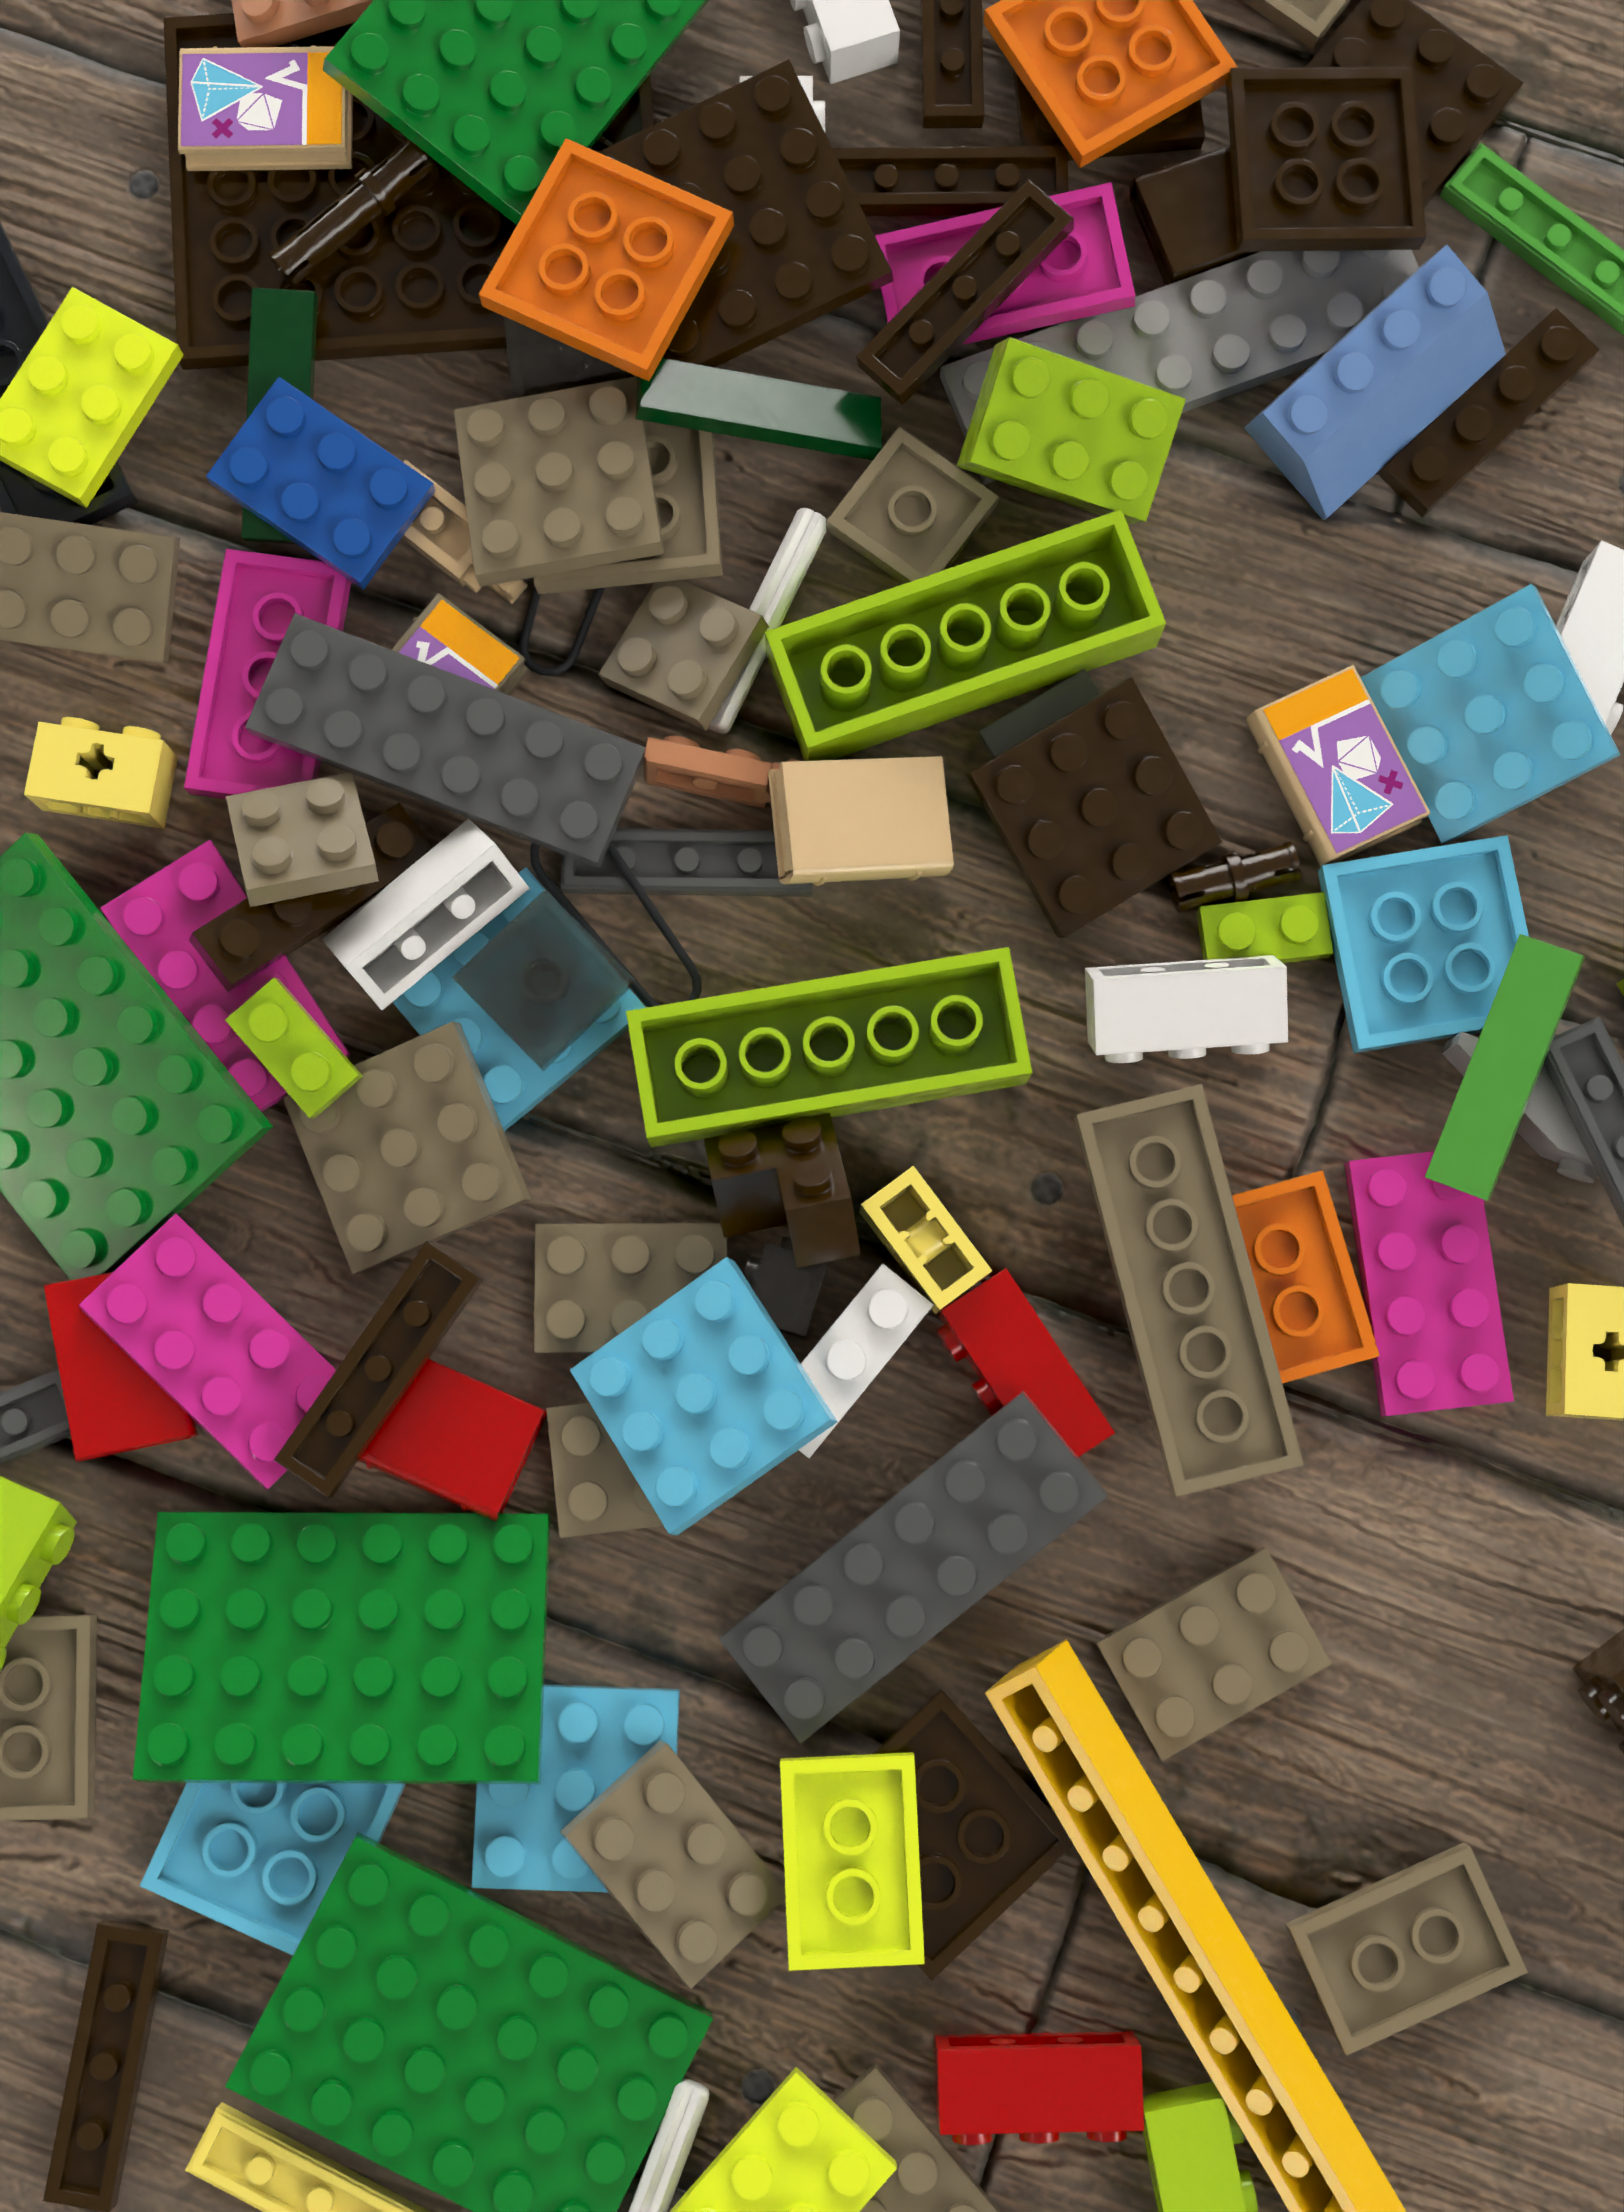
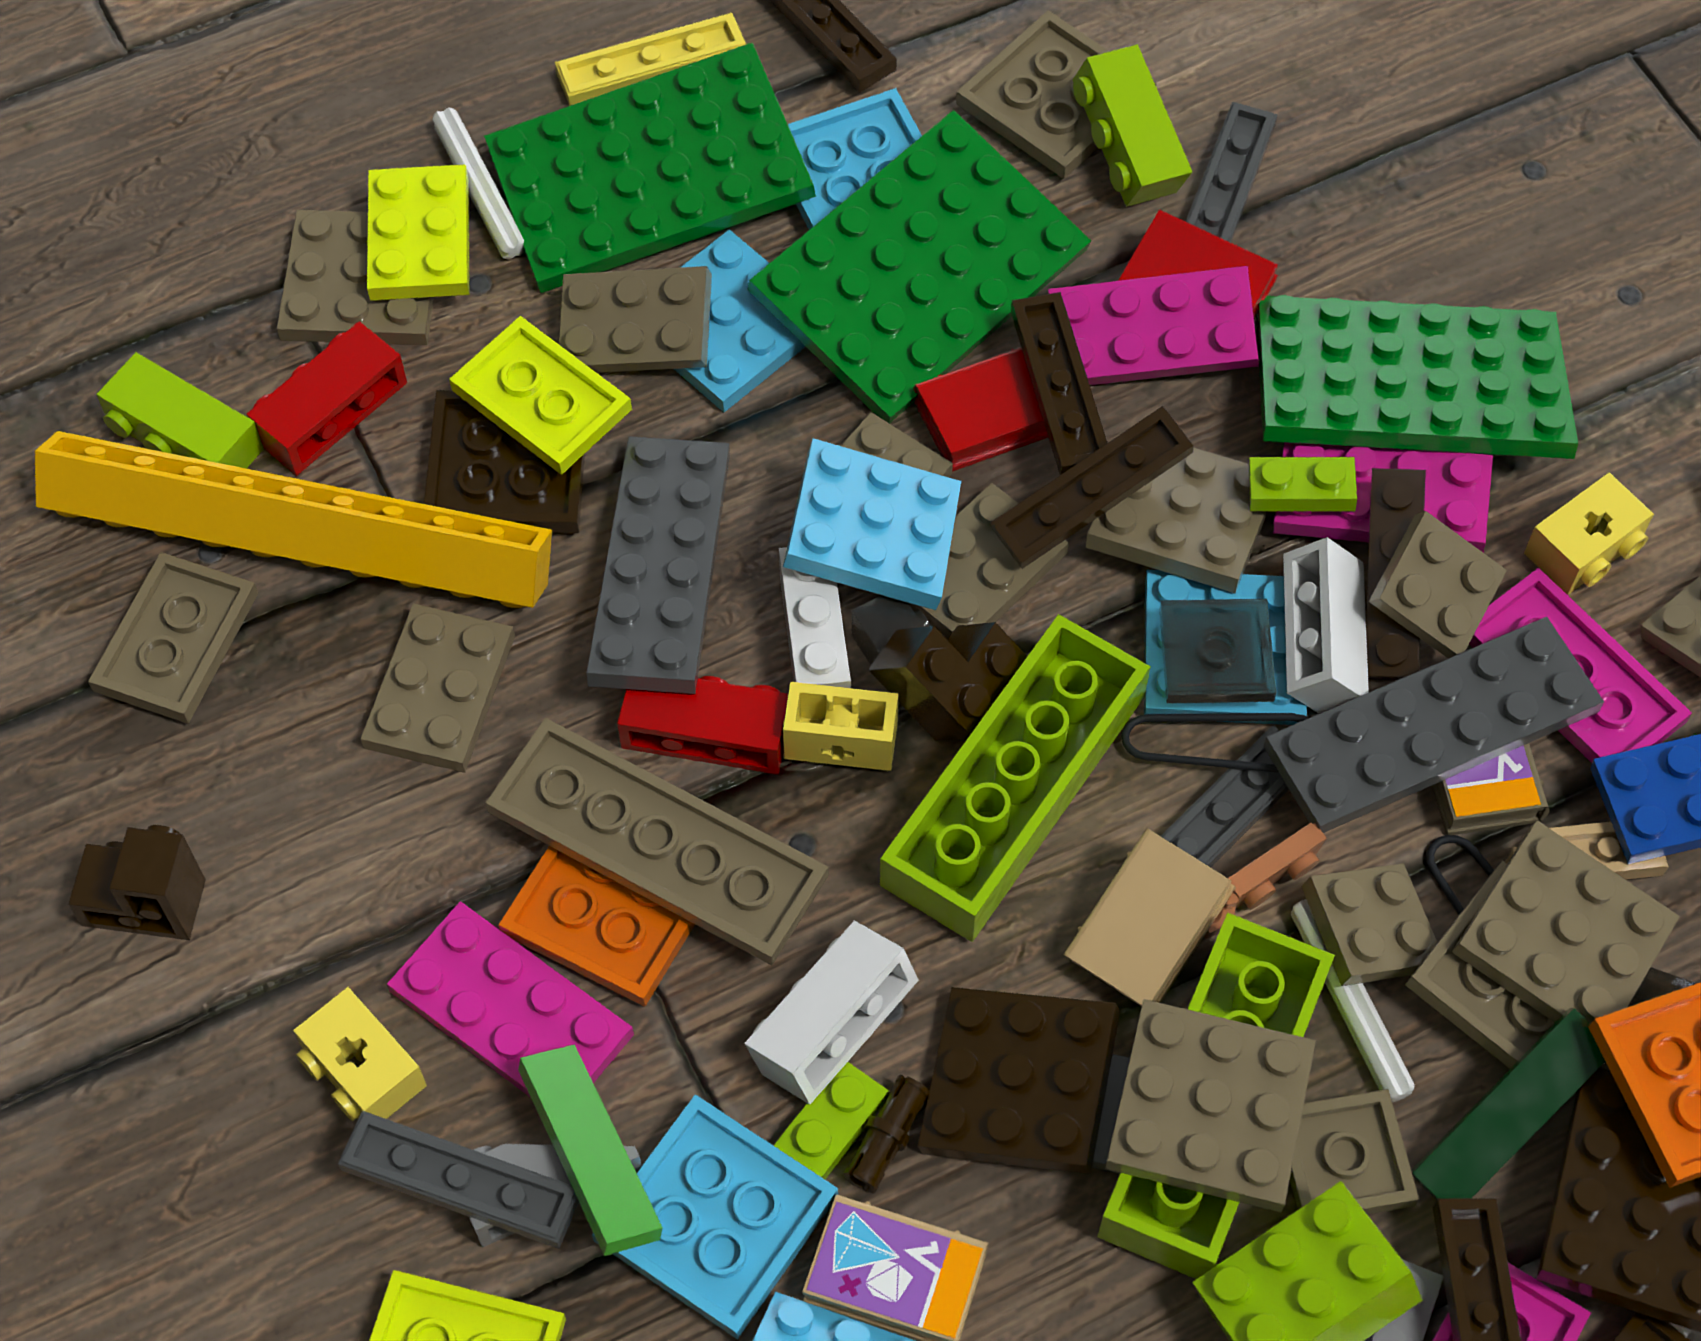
camera: 135 degrees right, 20 degrees down
(478, 1227) = (1092, 487): none -> dark brown plate
(997, 614) = (1211, 1105): none -> dark tan plate

